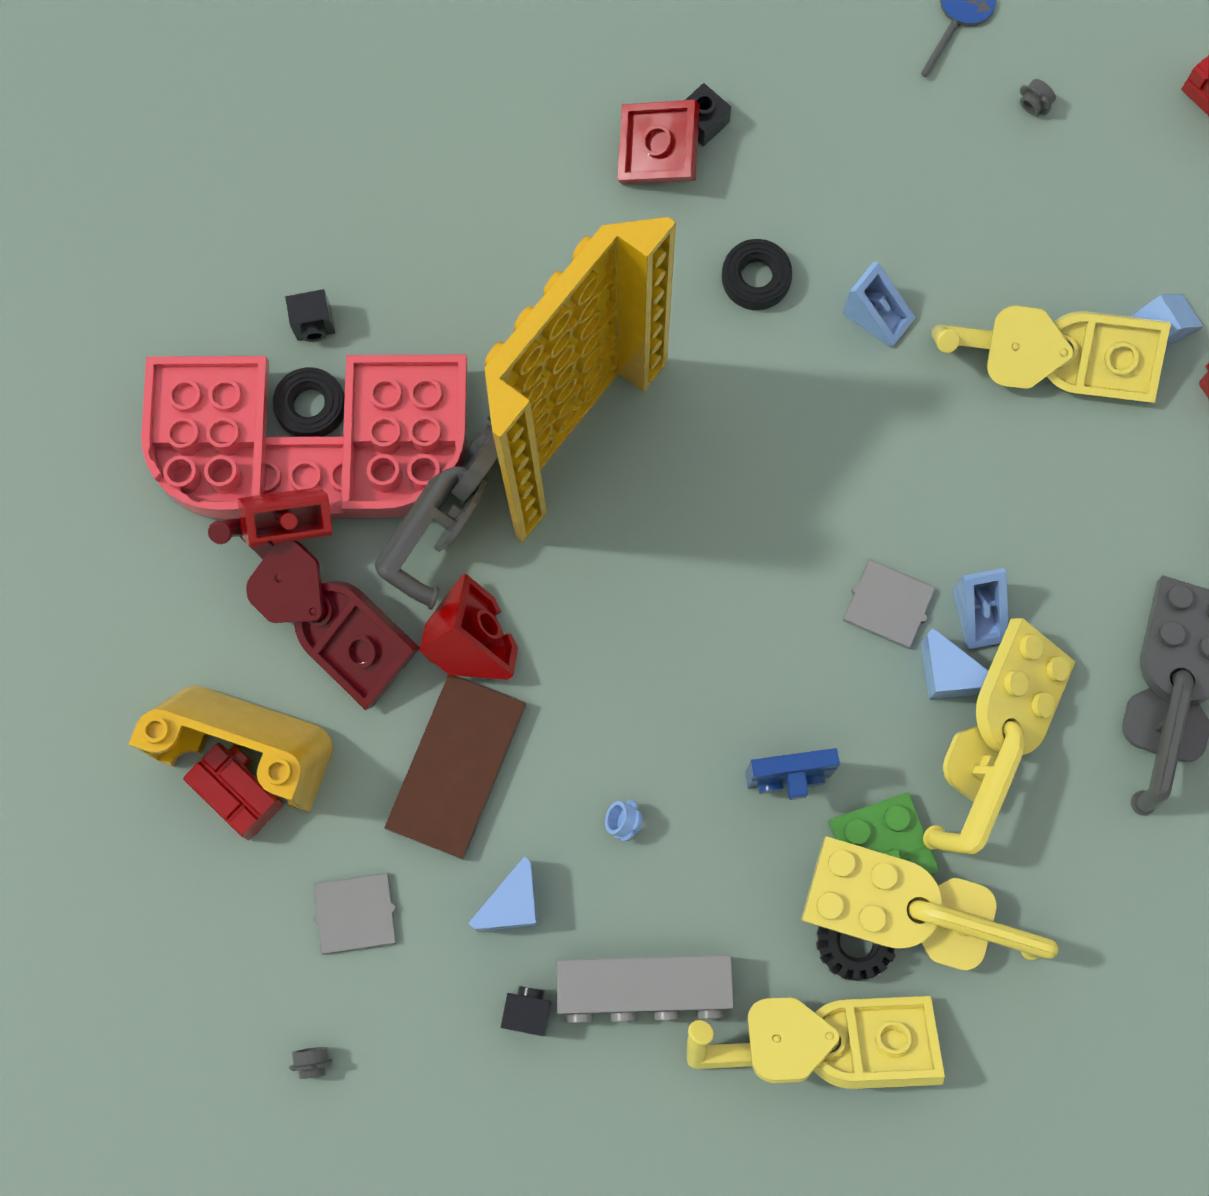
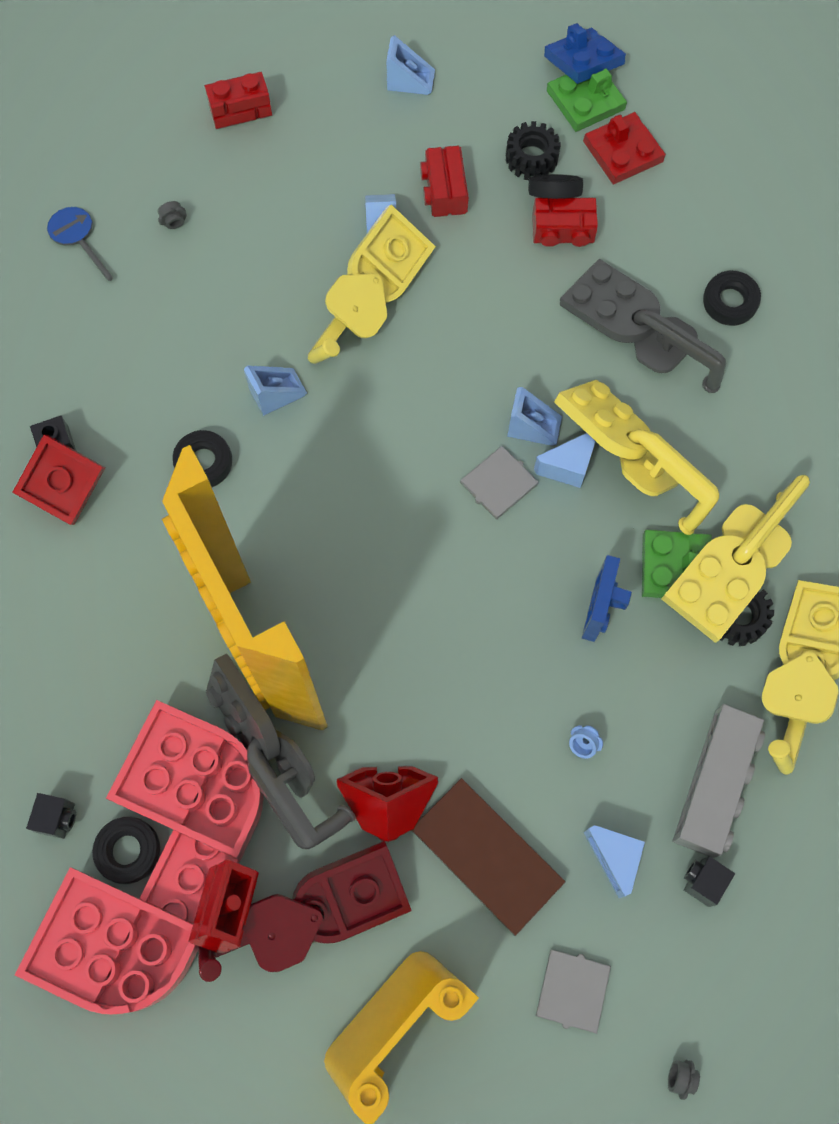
camera: 70 degrees left, 5 degrees down
(233, 790) = (432, 1053): red brick -> none

